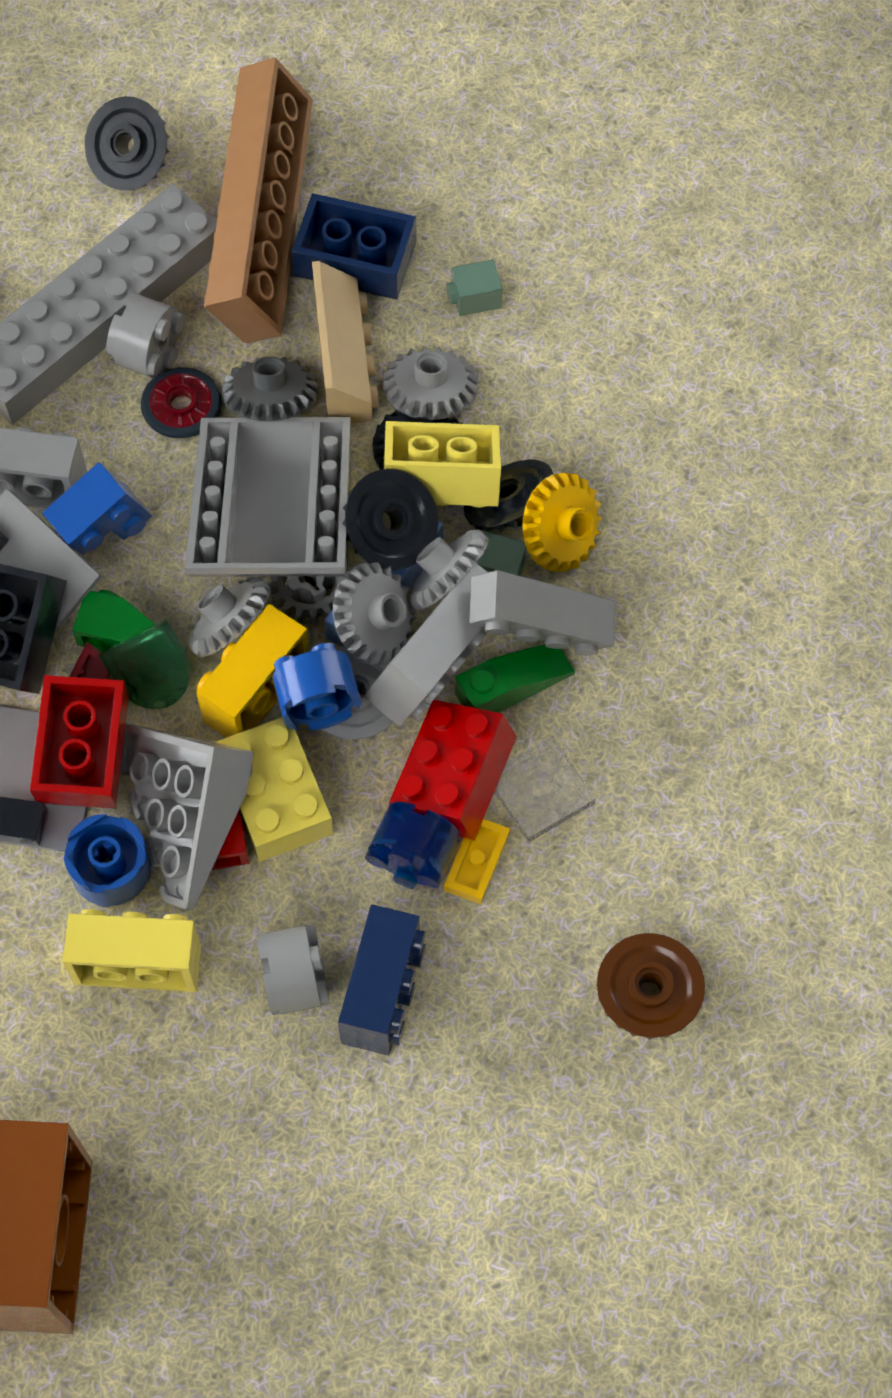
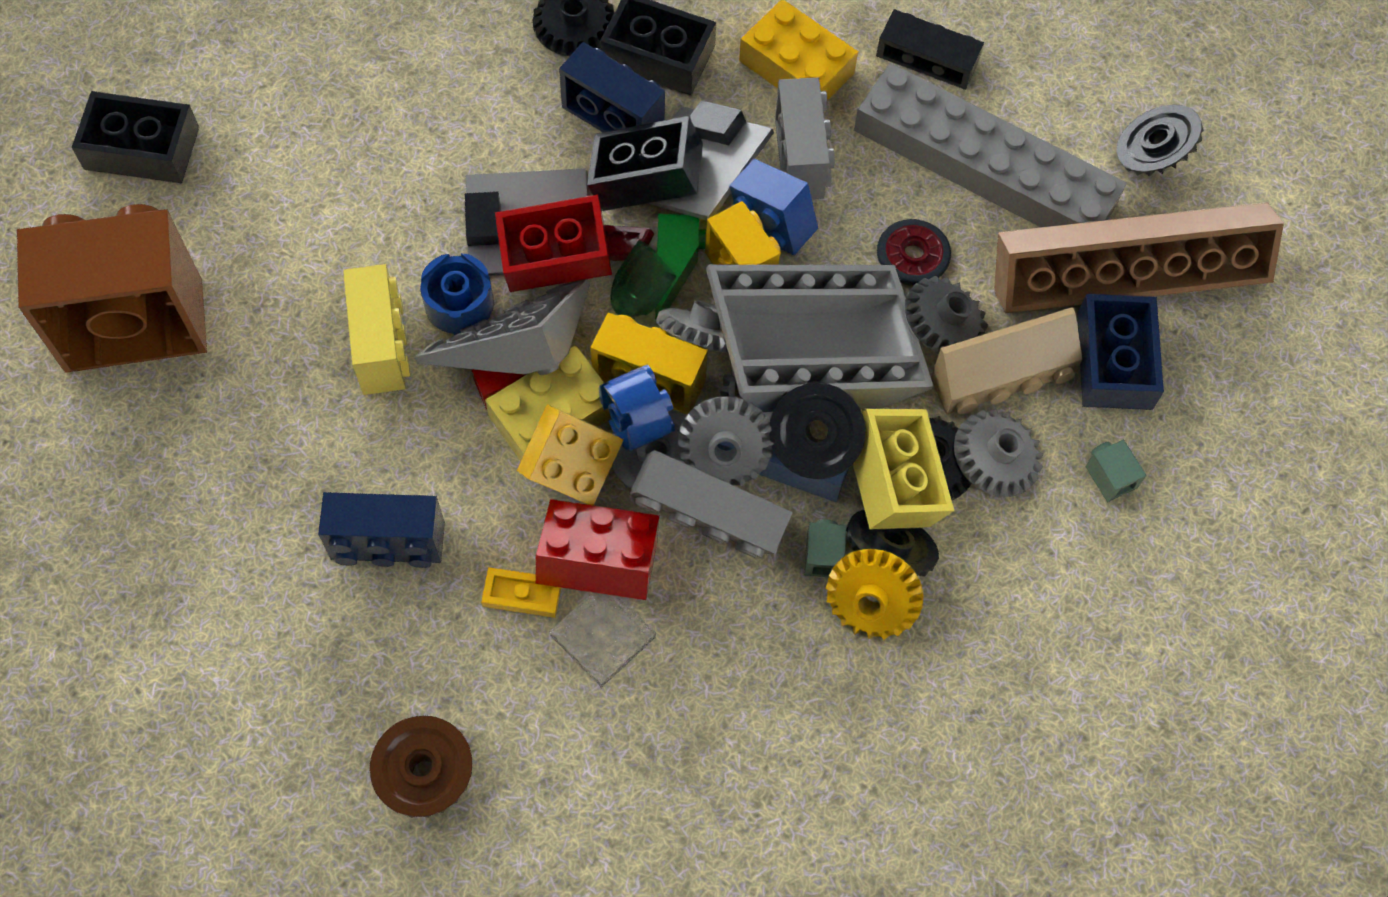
camera: 75 degrees right, 0 degrees up
(145, 335) = (962, 200): light grey brick -> none
(145, 555) = (739, 239): none -> yellow brick
(292, 969) = (381, 455): light grey brick -> none
(346, 771) = (569, 455): none -> yellow brick
(413, 846) = (514, 530): clear blue brick -> none
(445, 566) = (789, 492): light grey gear -> none
(511, 678) = (707, 586): green slope -> none
(542, 612) = (762, 588): light grey brick -> none

